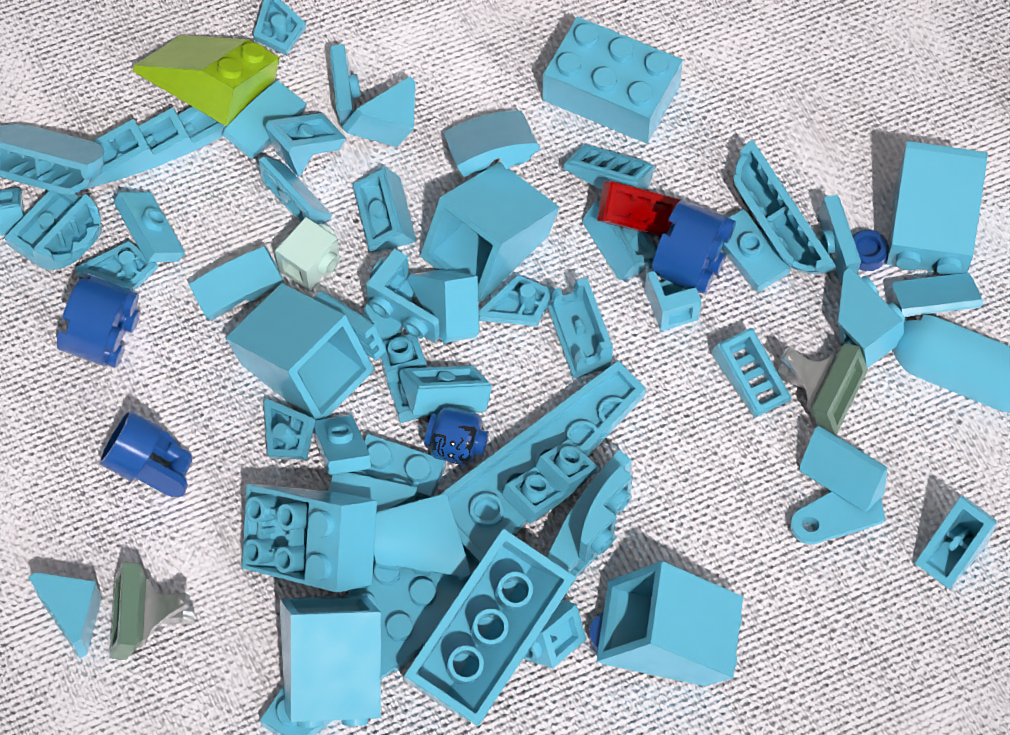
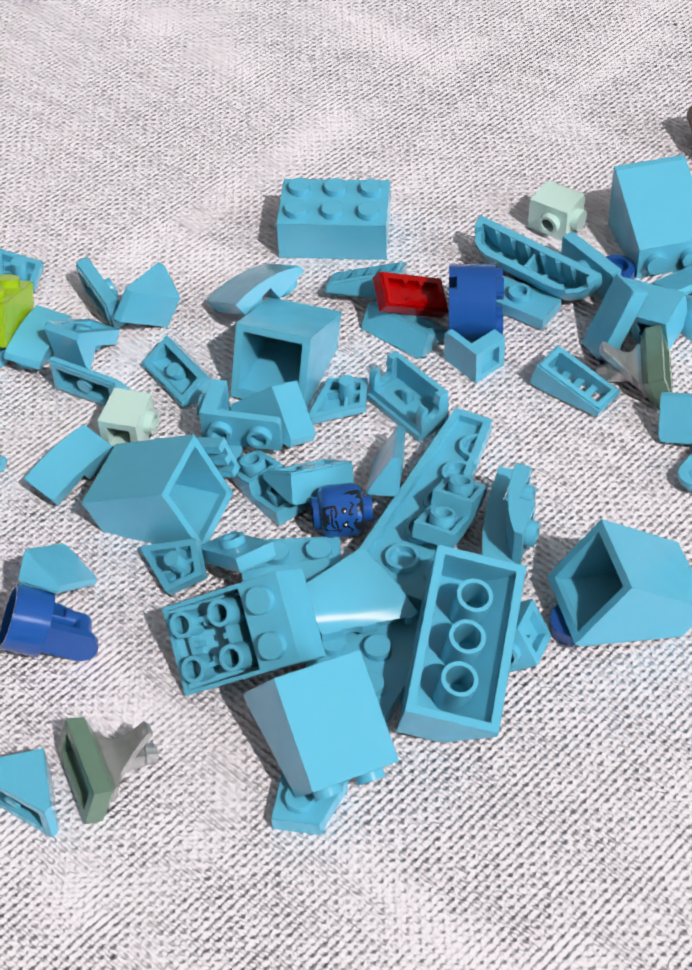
camera: 20 degrees left, 15 degrees down
(175, 403) = (54, 569): none -> medium azure slope
(521, 405) = (388, 466): none -> medium azure slope
(821, 318) = (614, 315): none -> medium azure slope
(843, 154) = (556, 210): none -> light aqua brick

